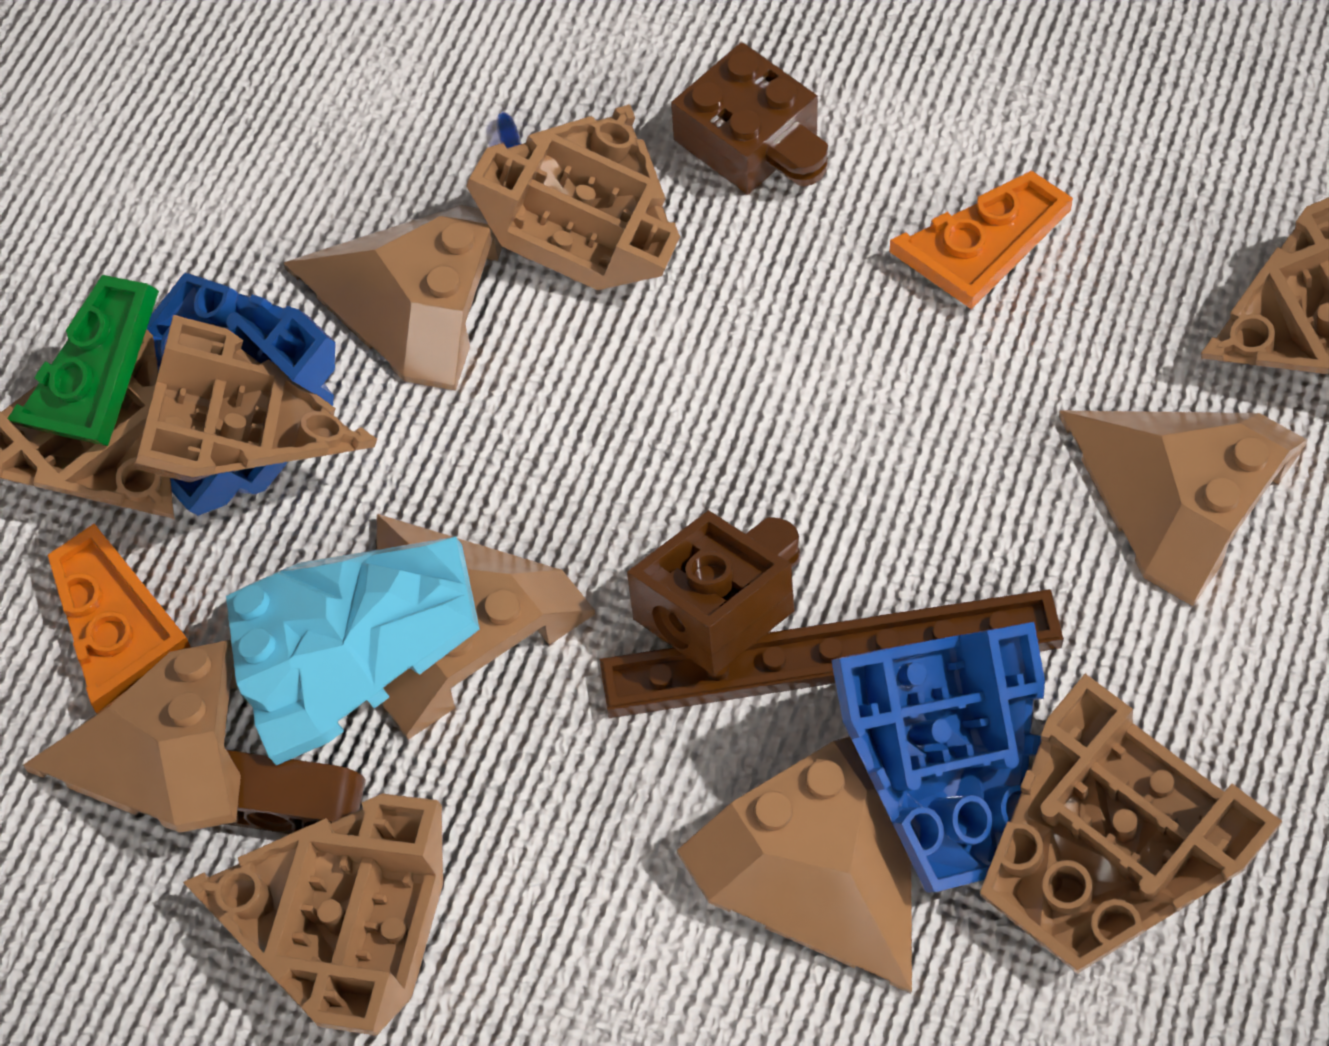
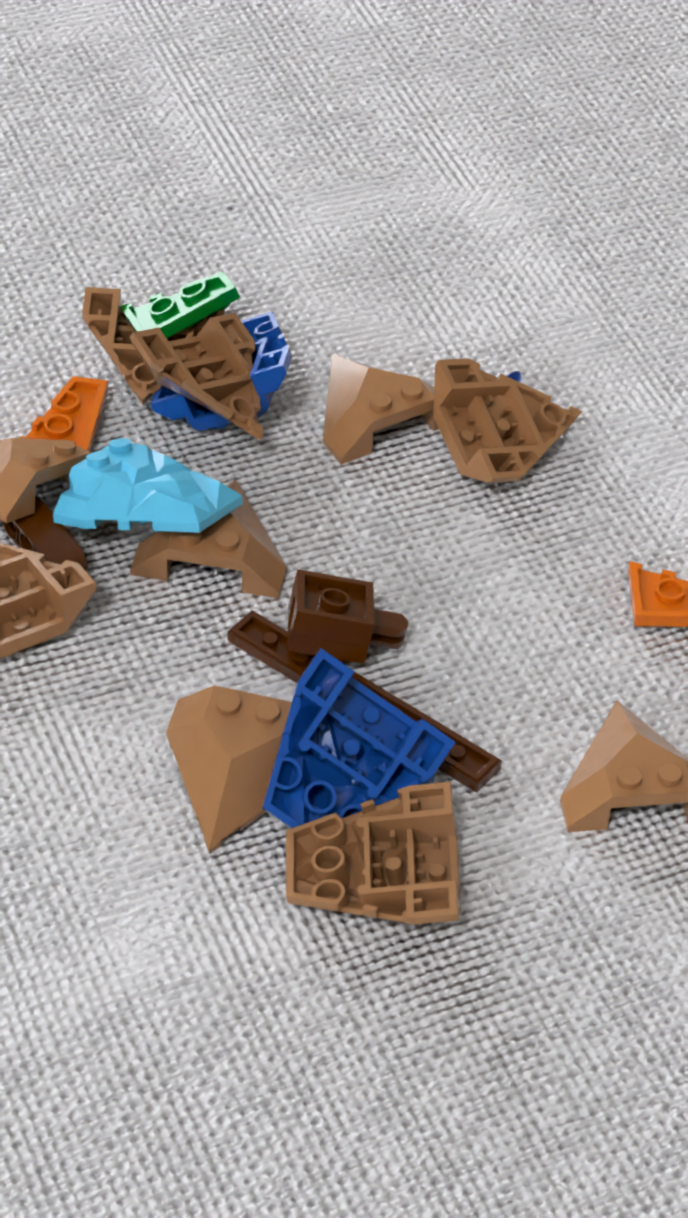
camera: 40 degrees right, 15 degrees down
(751, 121) = (630, 461): reddish brown brick -> none

